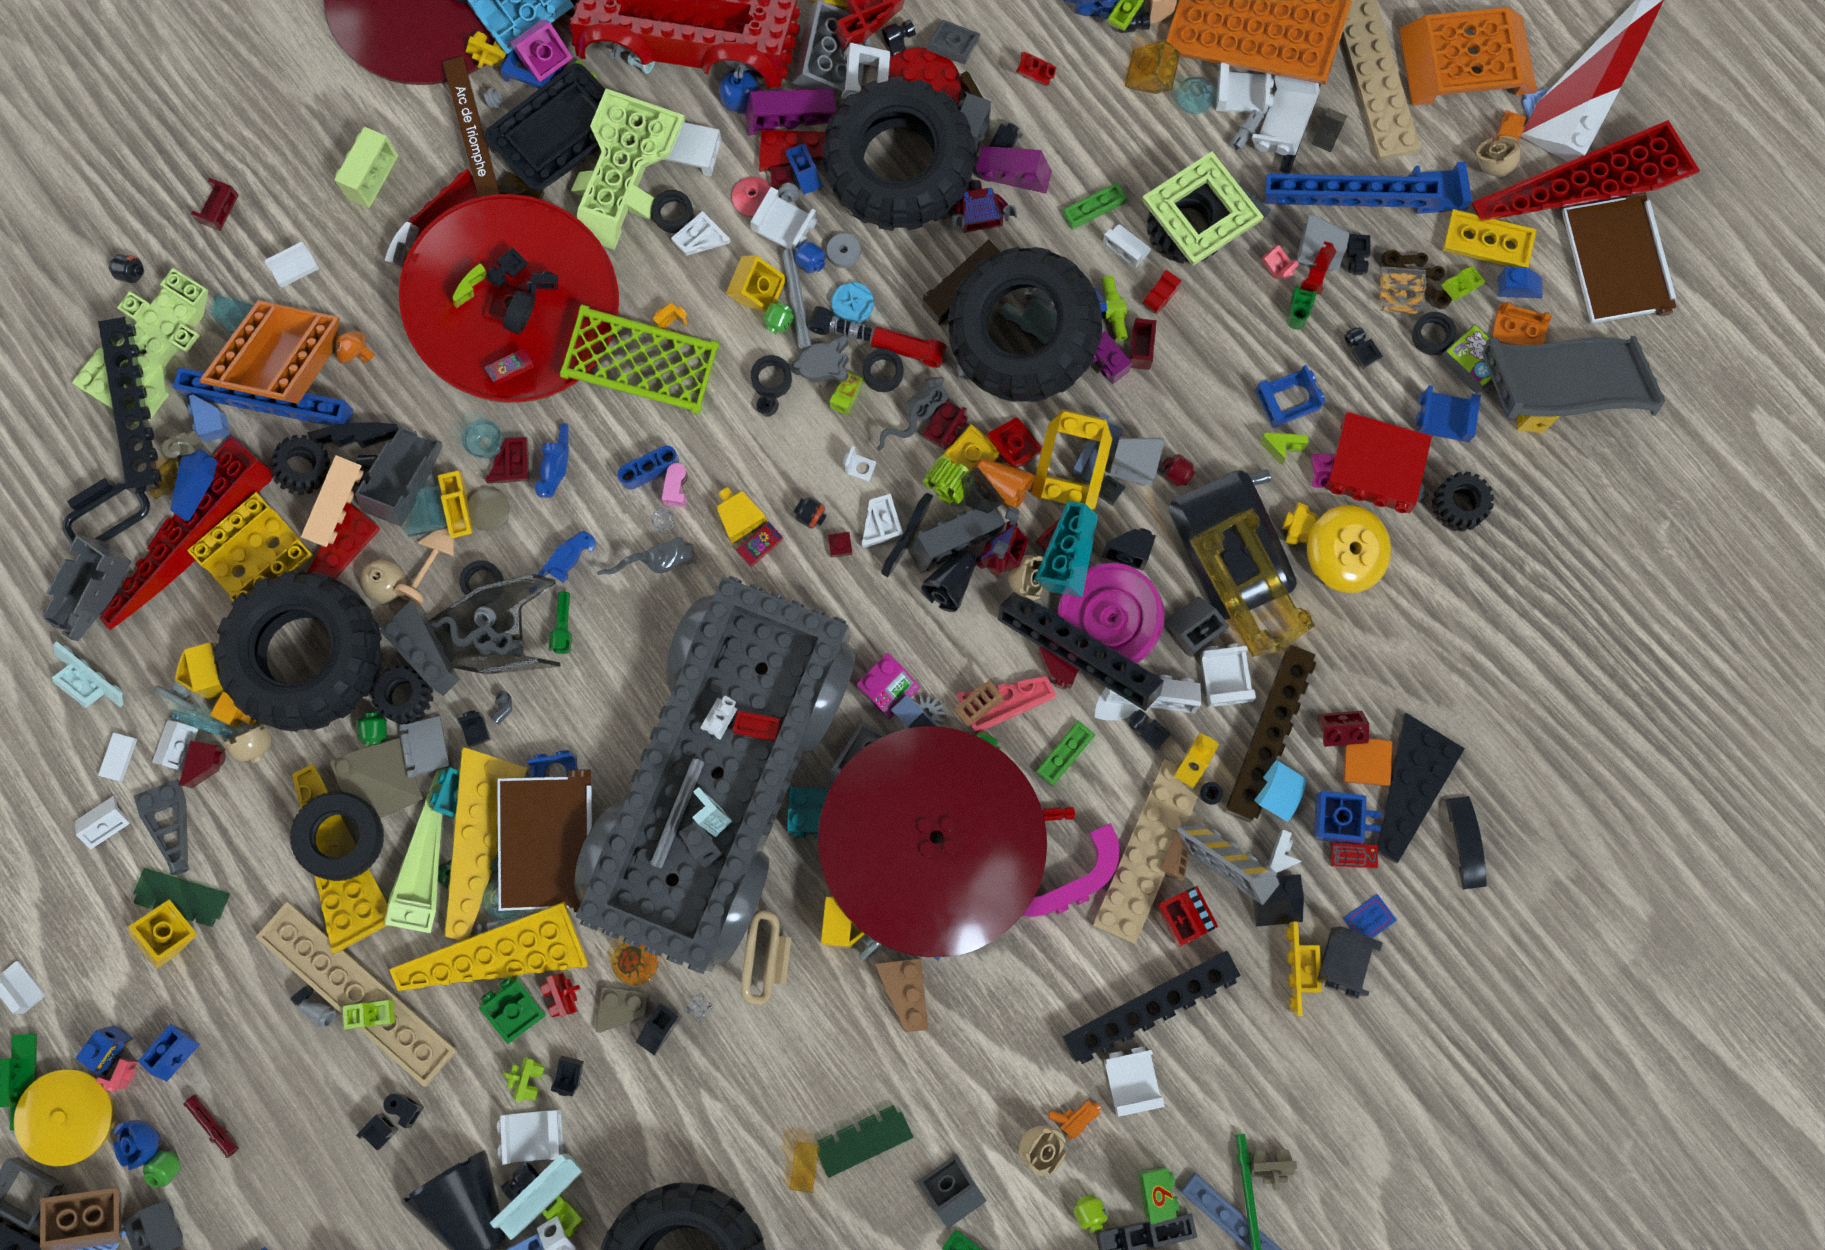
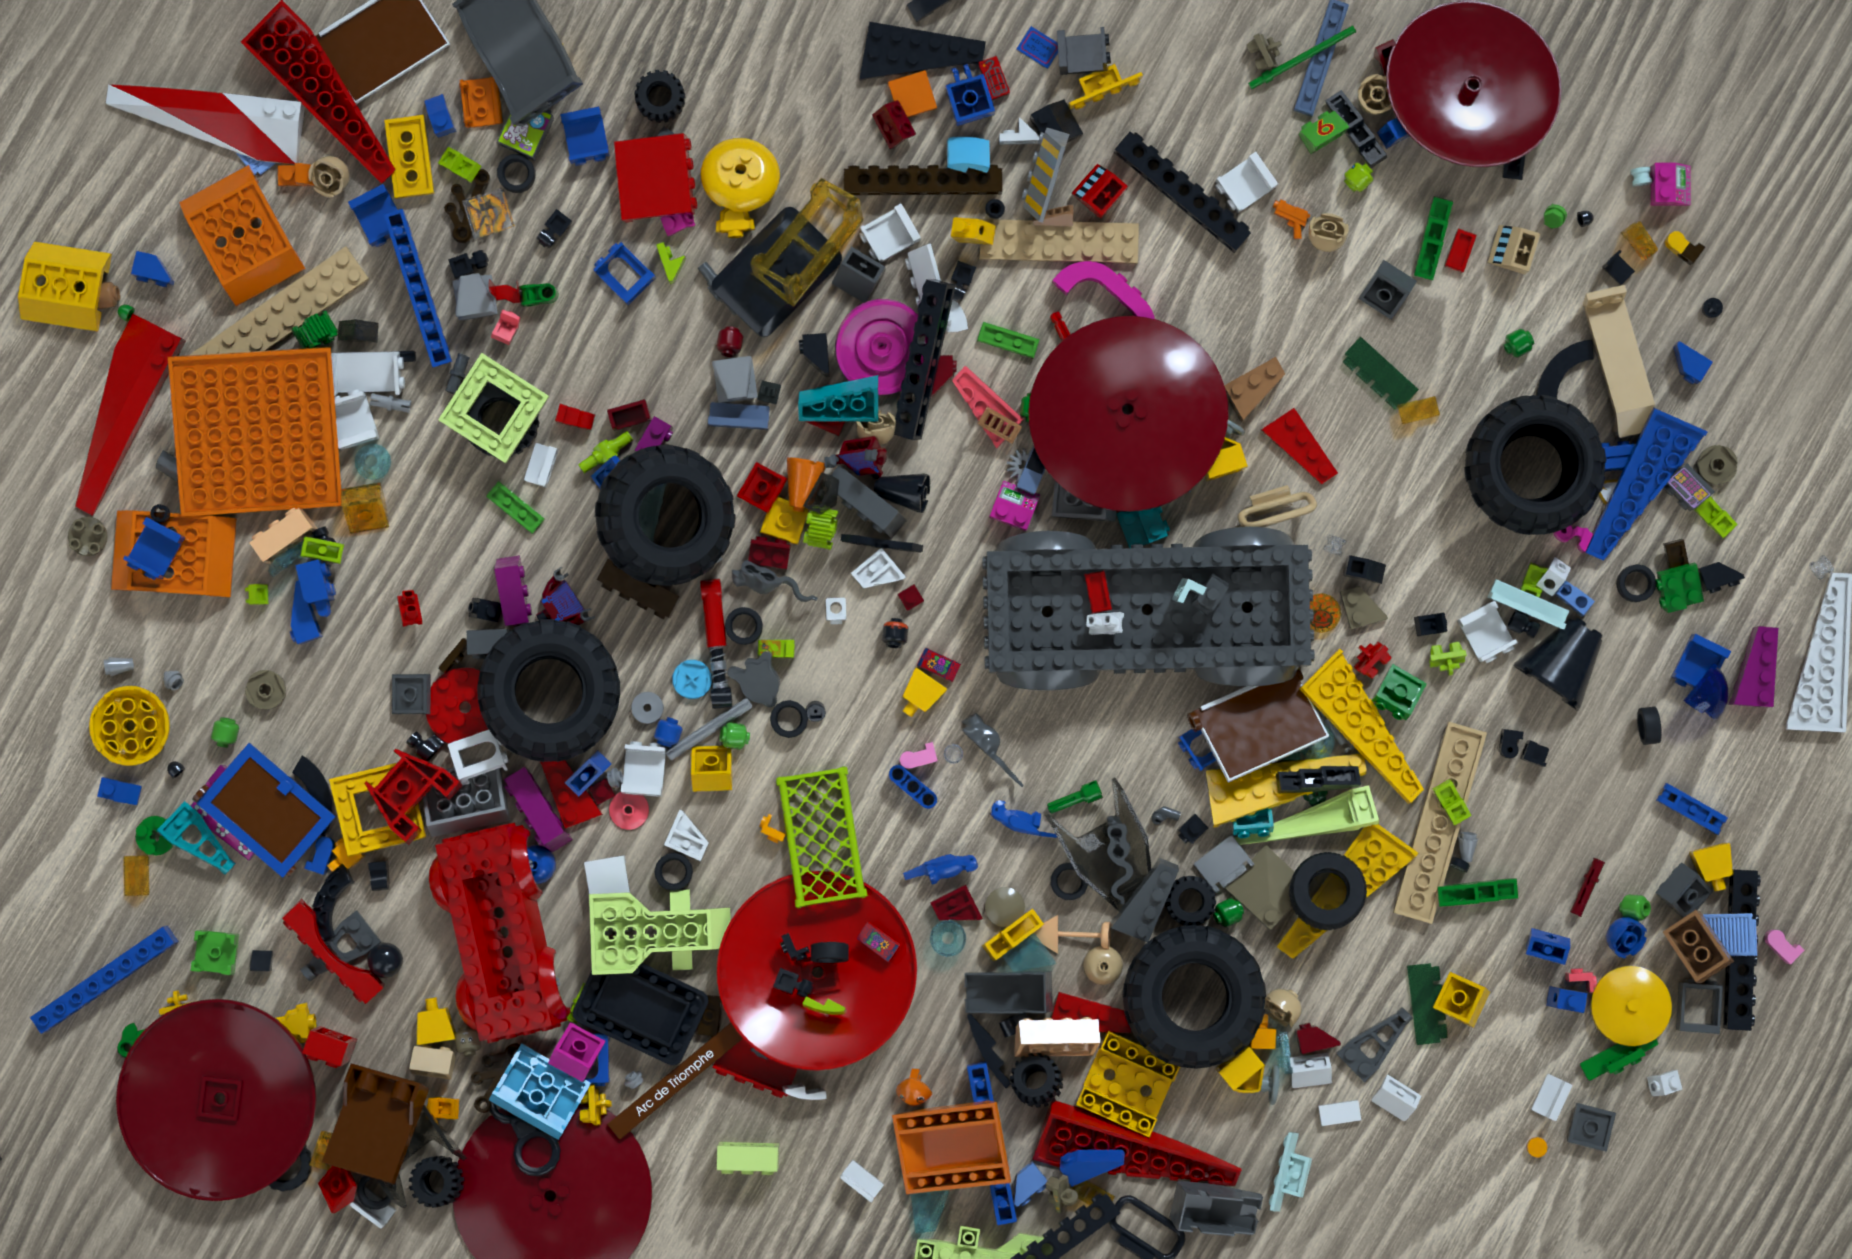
camera: 120 degrees left, 10 degrees up
(264, 1002) = (1477, 892): none -> green slope
(458, 879) = (1319, 779): none -> black slope
(481, 620) = (1098, 863): light grey plate -> none
(677, 813) = (1194, 624): light grey axle -> none
(827, 1017) = (1299, 443): none -> red wing
(1066, 490) = (786, 429): yellow wedge -> none
(1345, 84) = (315, 331): none -> green brick

